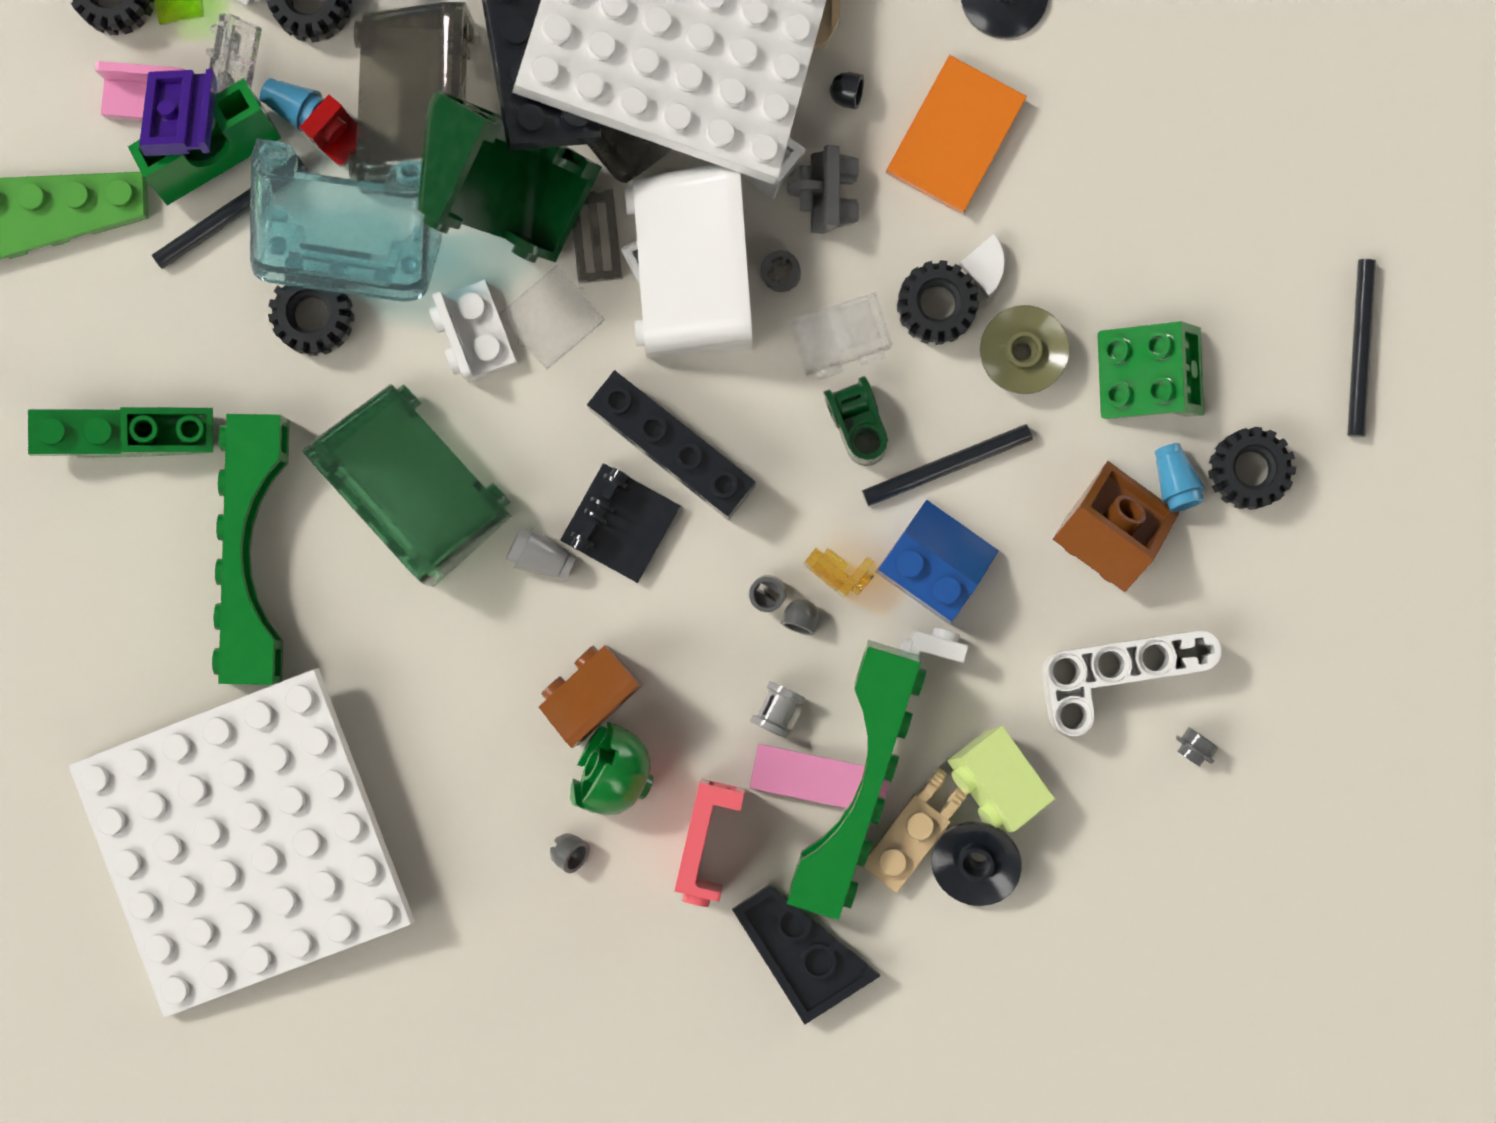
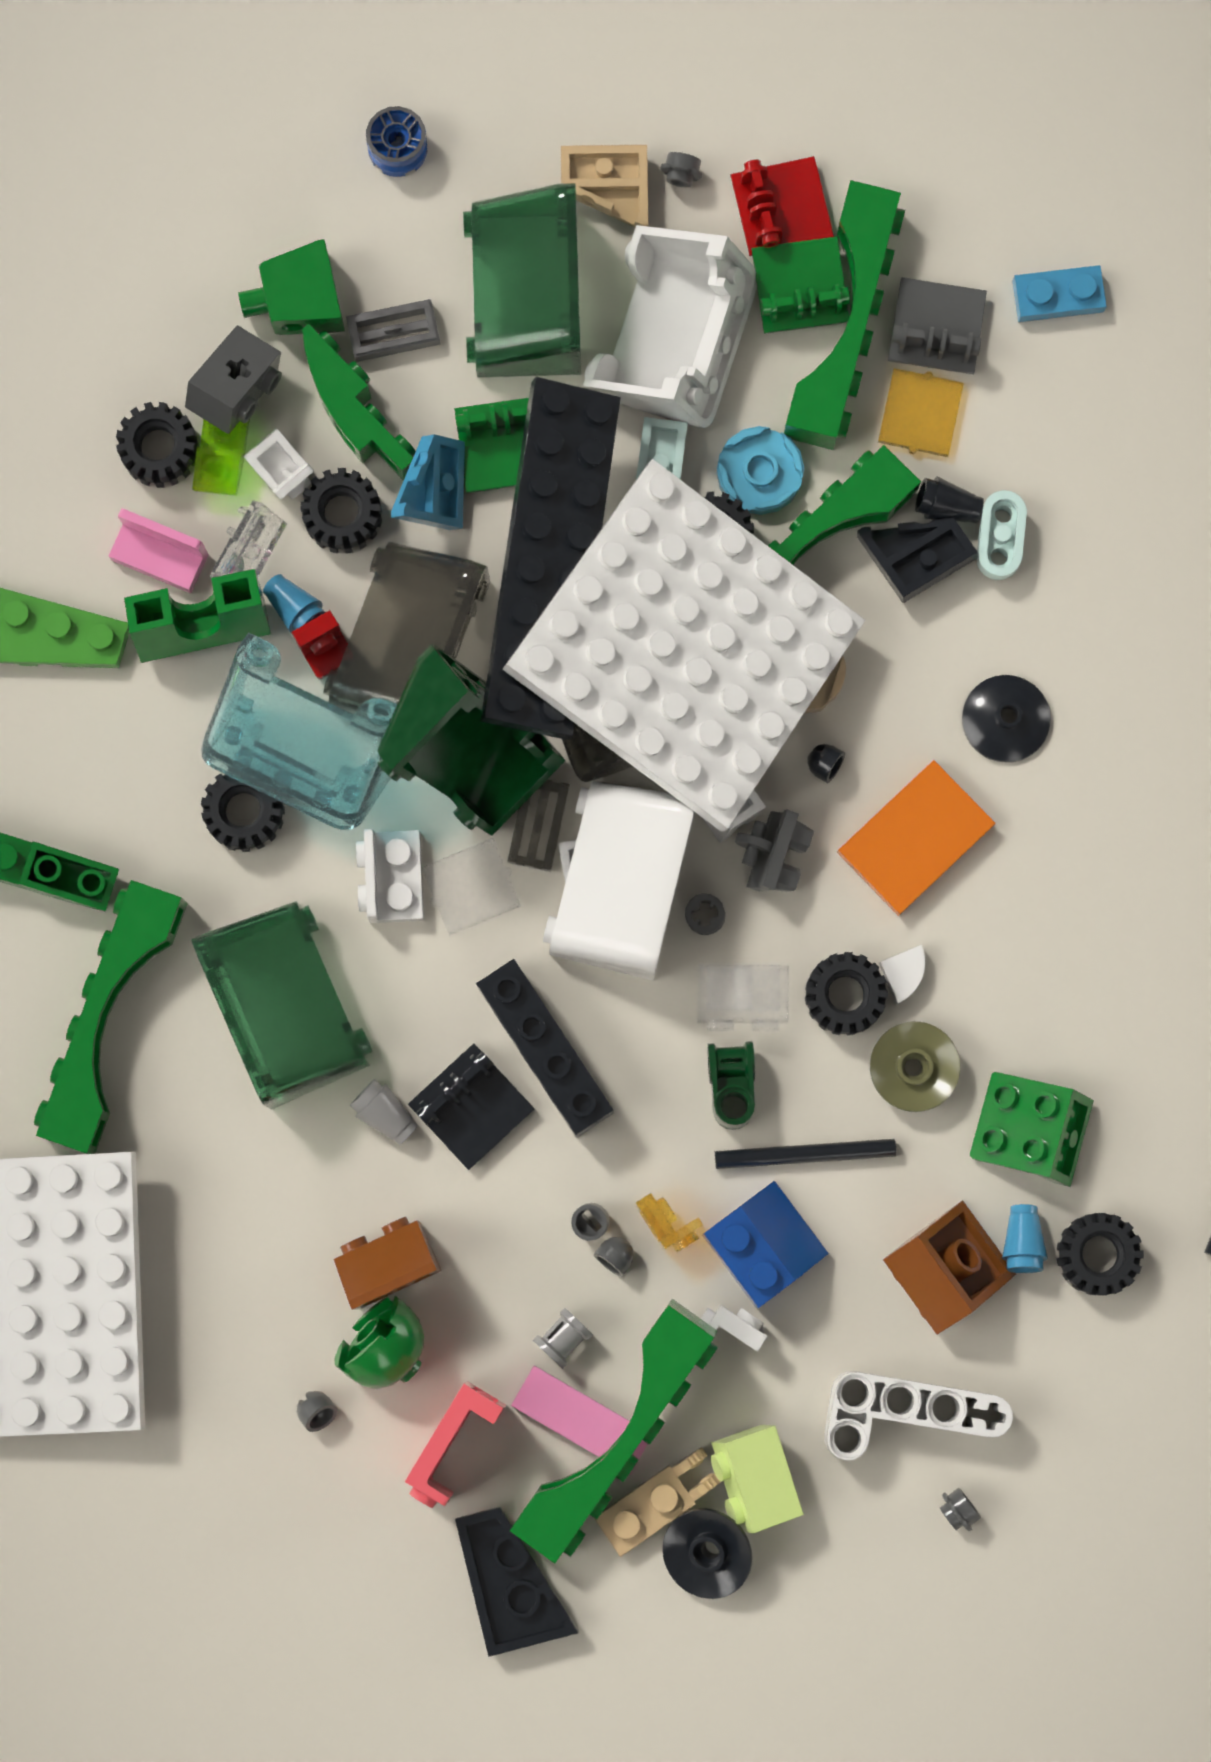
camera: 15 degrees right, 5 degrees down
(178, 112) = (182, 582): dark purple plate -> none
(207, 227) = (173, 695): black bar -> none

